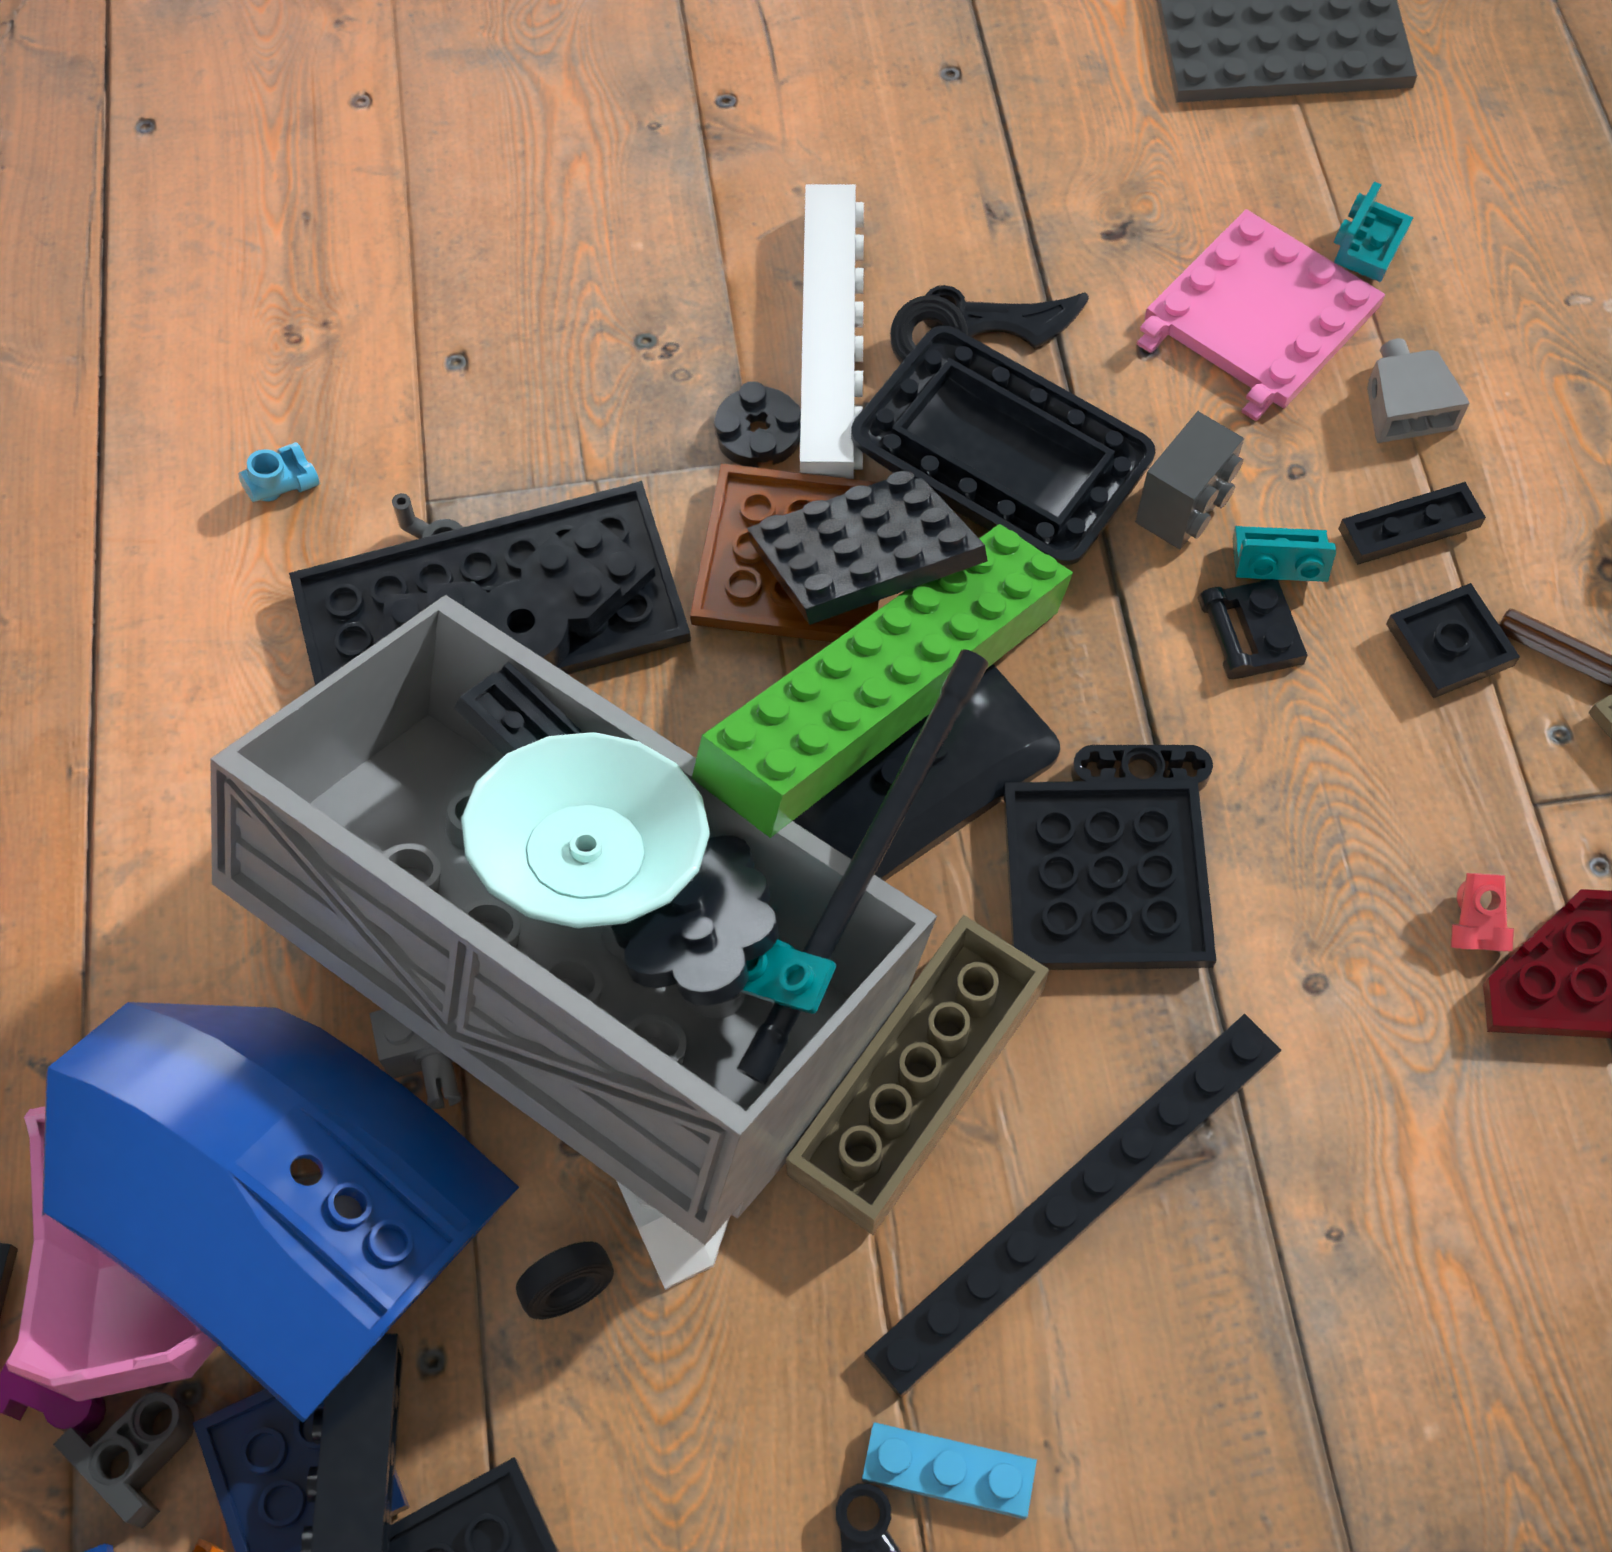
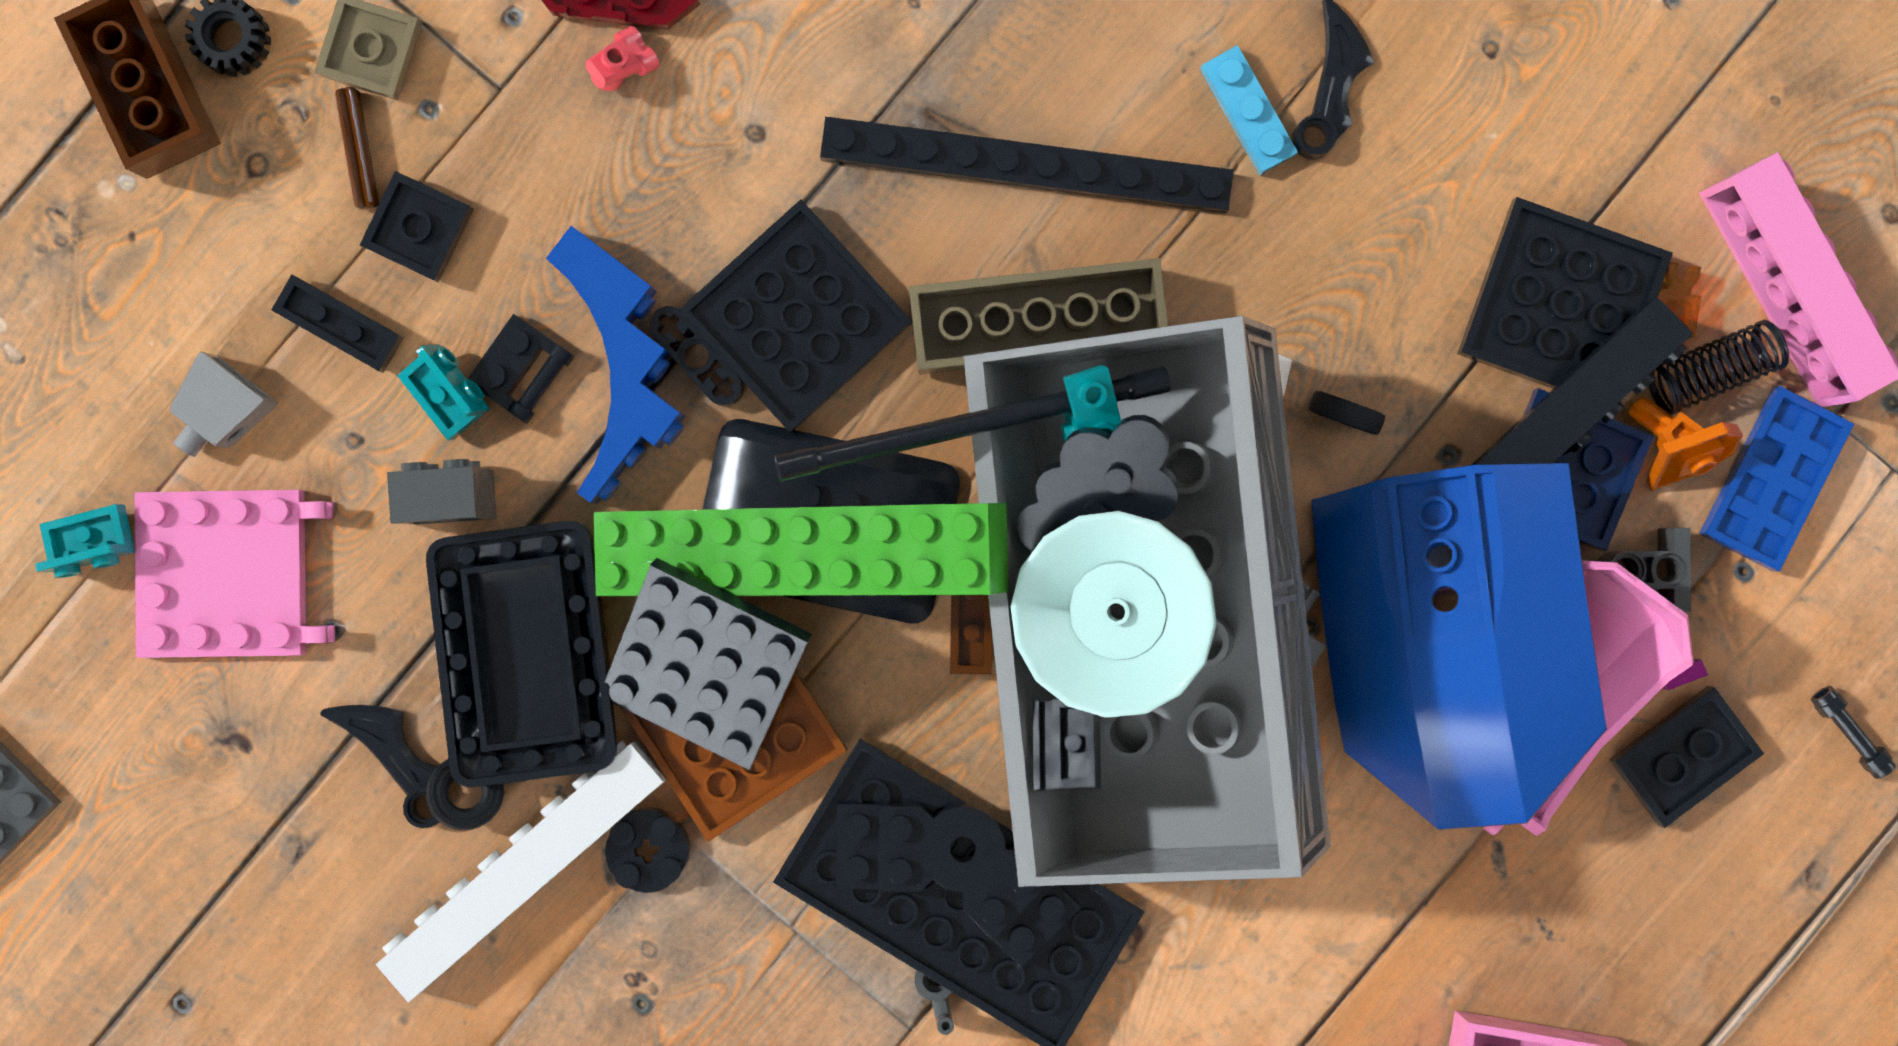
camera: 130 degrees left, 25 degrees up
(1249, 738) = (634, 359): none -> blue arch

